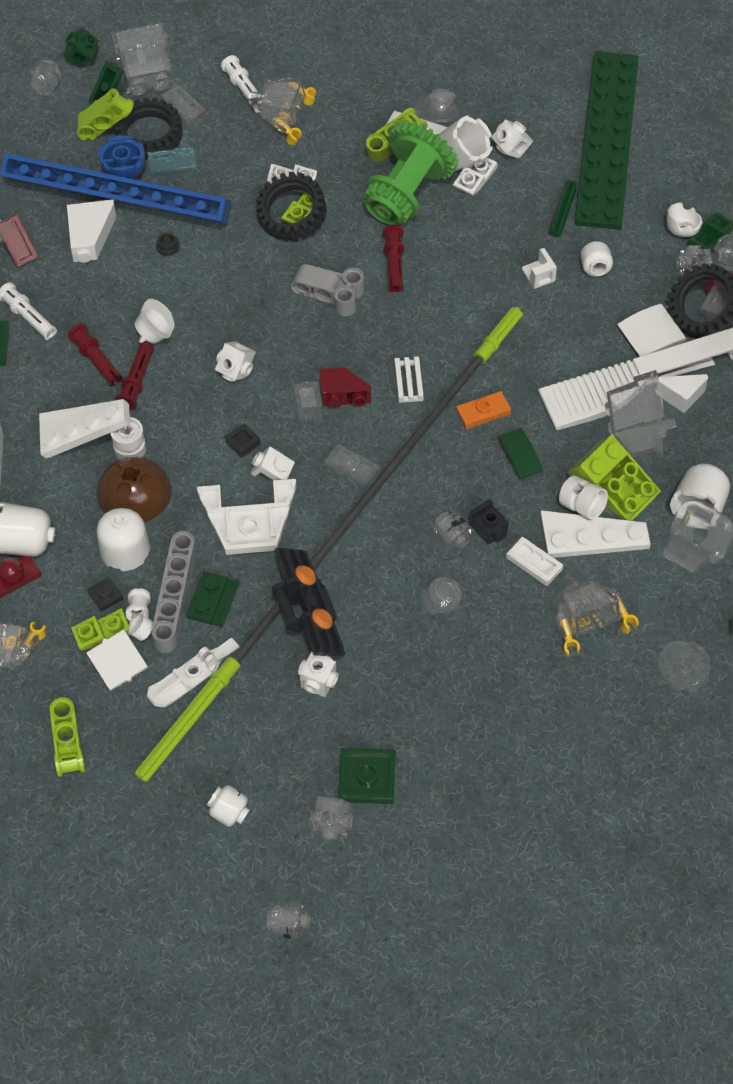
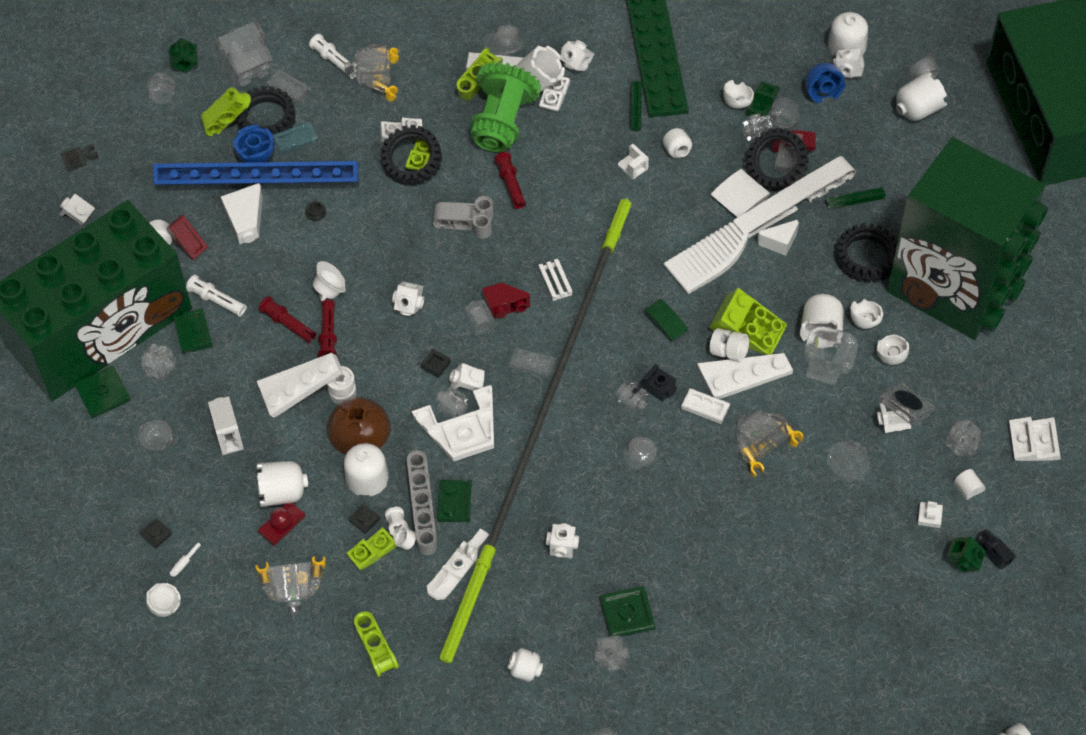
camera: 15 degrees left, 0 degrees up
(108, 79) = (219, 82): dark green slope -> none
(117, 660) = (393, 570): white piece -> none
(245, 488) = (451, 403): none -> clear head
(305, 588) = (530, 473): black piece -> none
(483, 410) = (624, 291): orange plate -> none
(639, 415) = (755, 266): clear piece -> none

